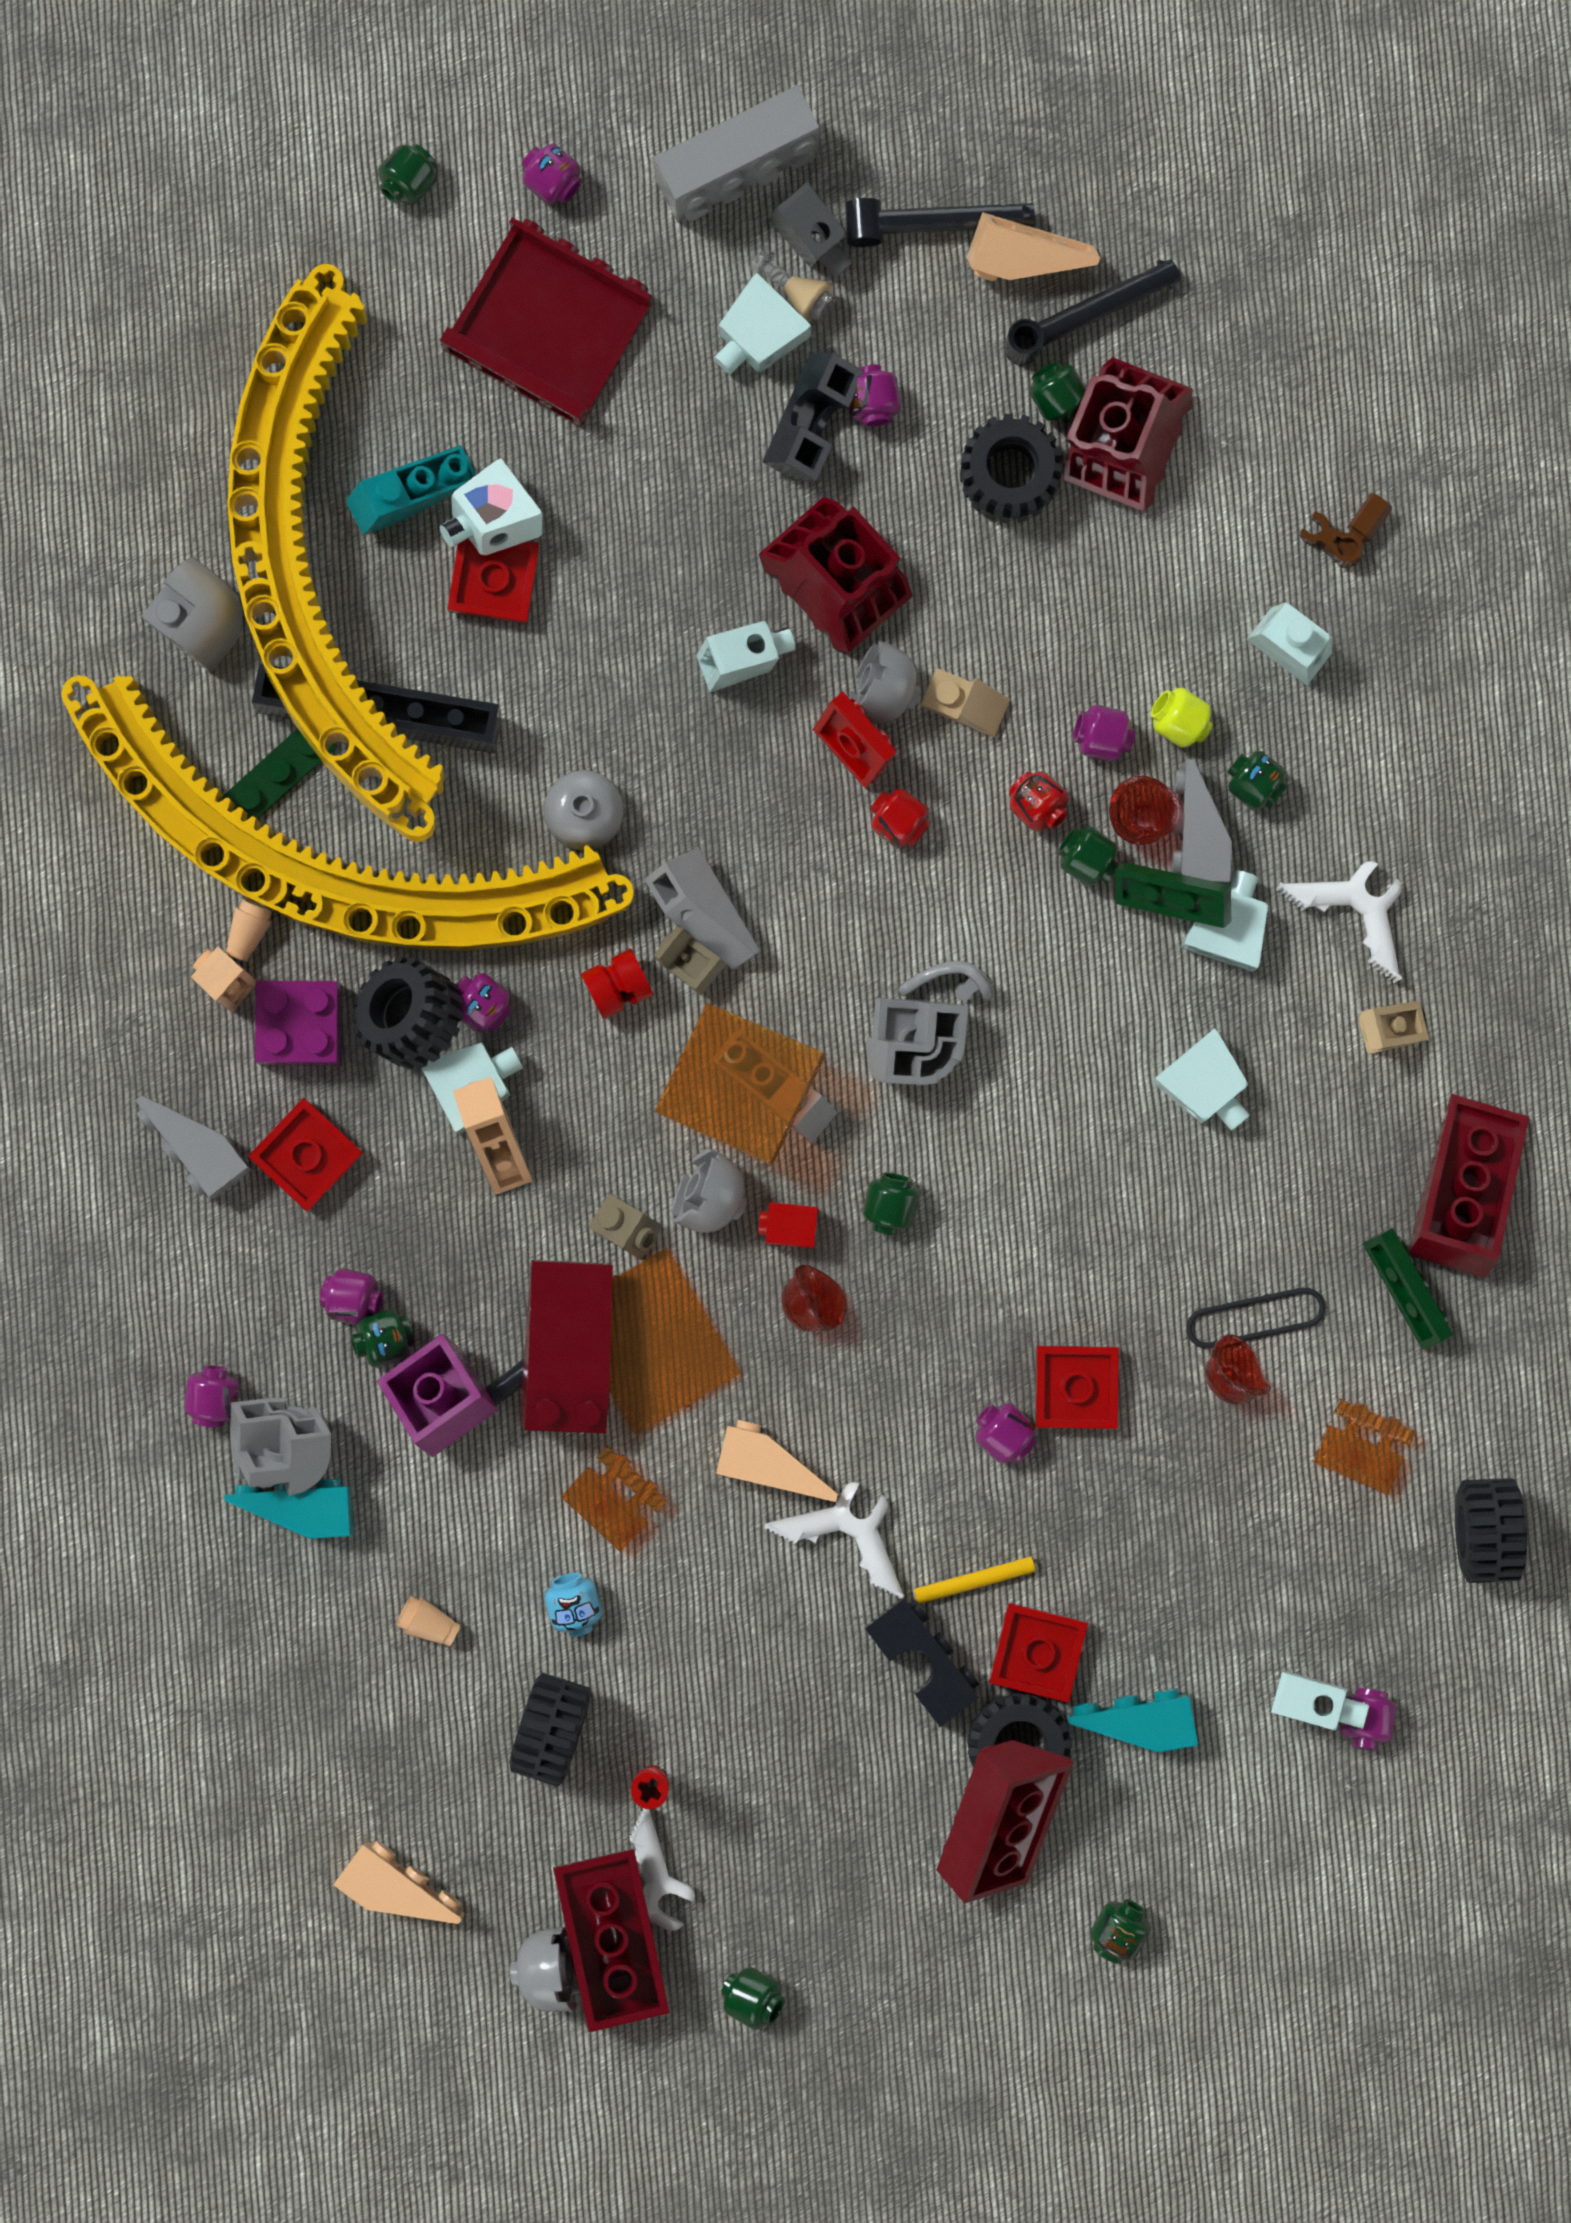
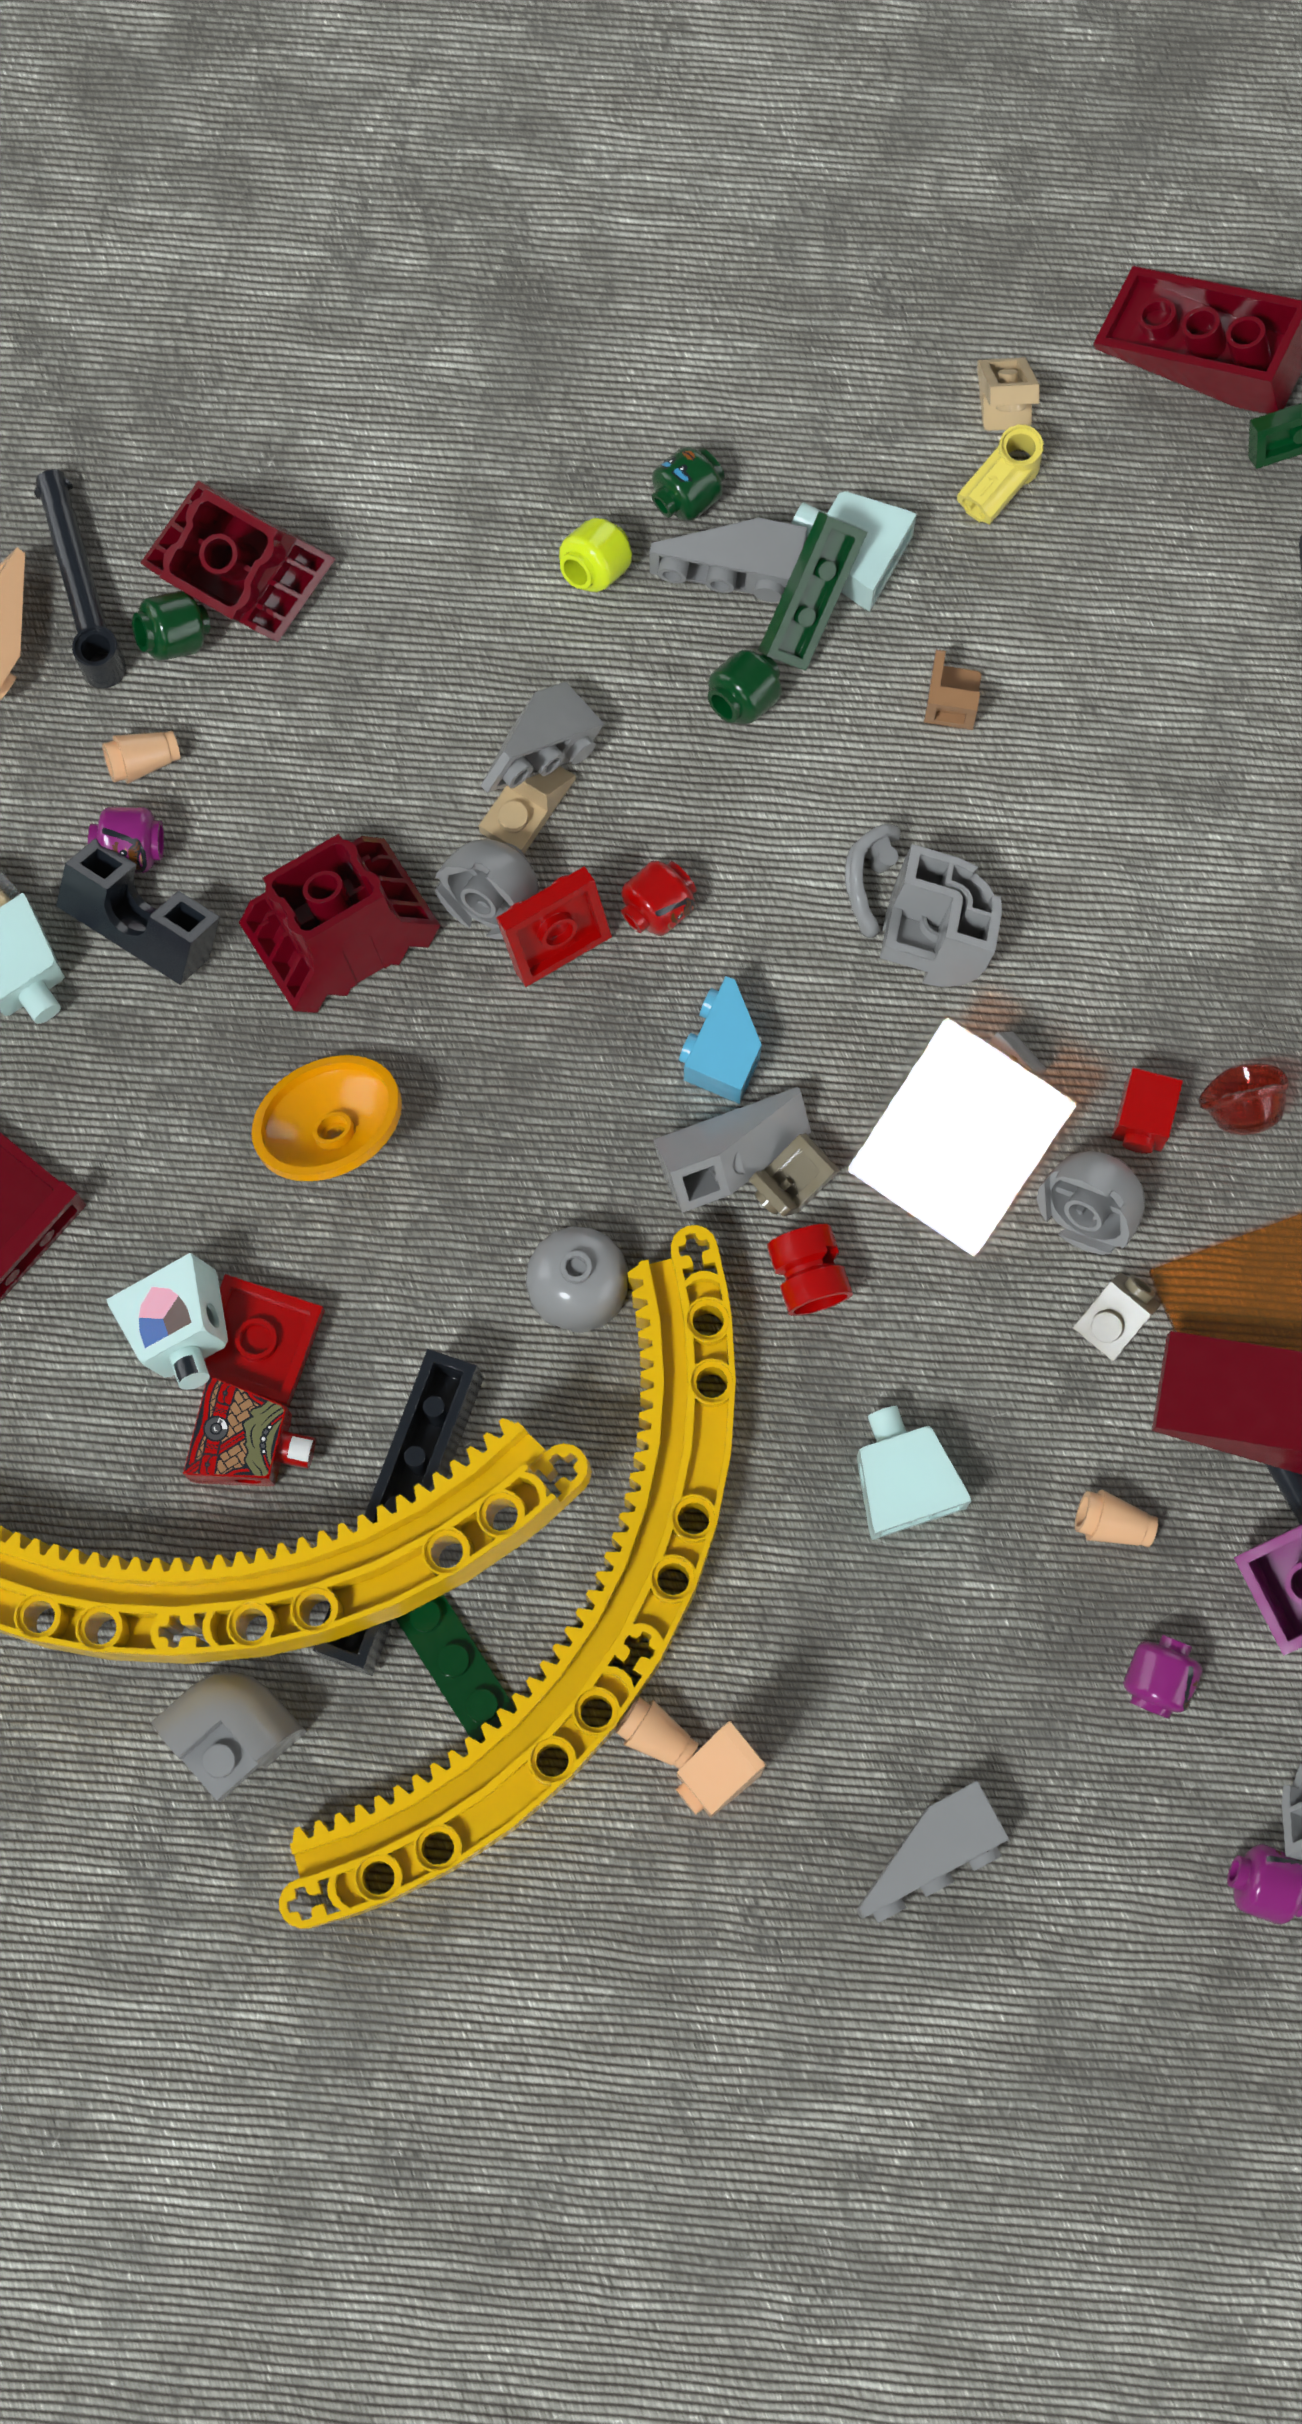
camera: 80 degrees left, 10 degrees down
(298, 1023) = (794, 1684): magenta brick -> none
(305, 1154) = (966, 1706): red plate -> none
(382, 1338) = (1223, 1643): dark green head -> none
(407, 1013) = (784, 1563): black tyre -> none
(408, 489) = (120, 1428): teal slope -> none
(416, 582) = (243, 1439): none -> torso
(464, 1245) = (1113, 1520): none -> light nougat cone
(484, 1002) = (805, 1446): magenta head -> none
(492, 1135) = (982, 1450): light nougat slope -> none
(681, 583) = (326, 1118): none -> light orange dish
(727, 656) = (419, 1048): light aqua torso -> none
(785, 891) = (726, 1047): none -> medium azure slope
(891, 1203) = (1136, 985): dark green head -> none
(948, 391) = (139, 754): none -> light nougat cone
(1011, 435) = (244, 658): black tyre -> none
(1015, 703) = (547, 734): none -> light grey slope
(1038, 801) = (667, 732): red head -> none
(1103, 733) = (597, 645): magenta head -> none
(1116, 1023) = (952, 695): none -> medium nougat panel
(1143, 810) = (703, 609): clear red helmet -> none
(1206, 1082) = (1039, 601): light aqua torso -> none
(1292, 641) = (531, 411): light aqua torso -> none
(1308, 1032) = (1001, 475): none -> light yellow piece
(1348, 547) = (424, 342): reddish brown bar -> none
(1372, 908) = (861, 387): white piece -> none

